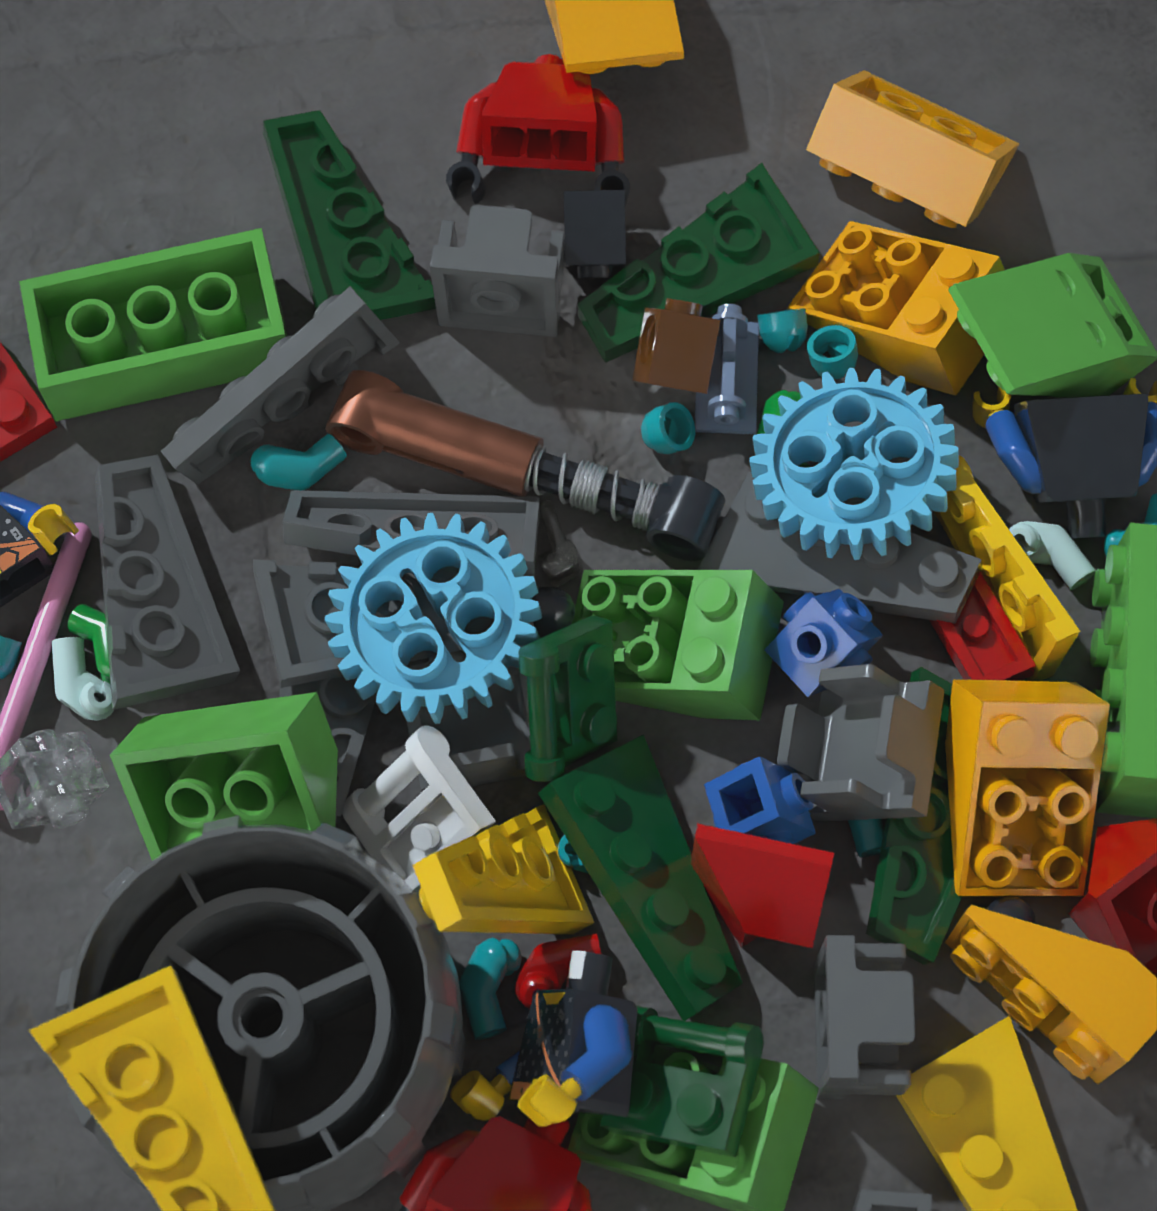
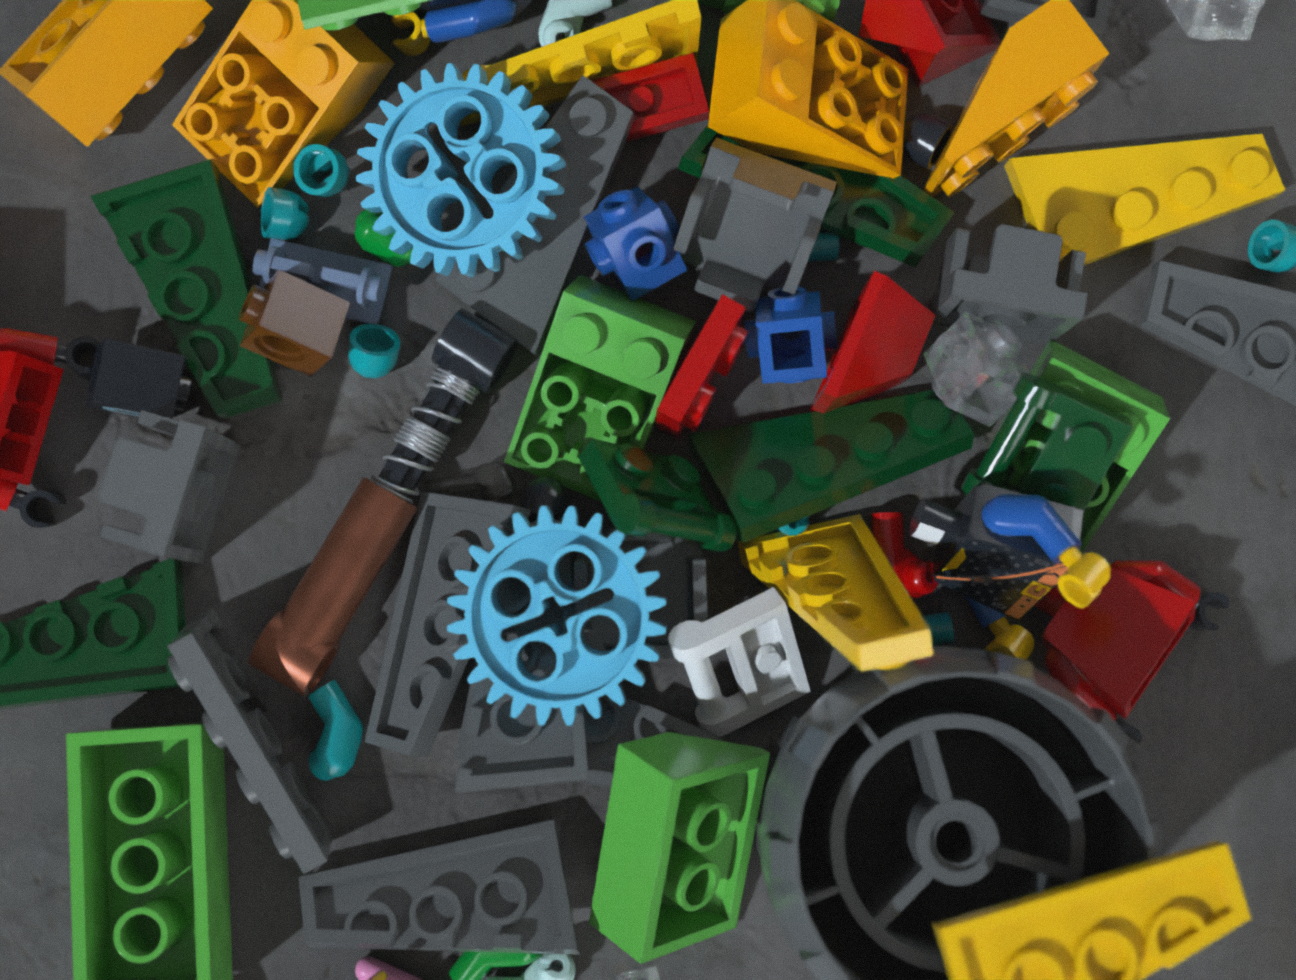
camera: 85 degrees left, 15 degrees up
(703, 719) = (712, 352): none -> red plate
(771, 995) = (976, 367): none -> clear brick

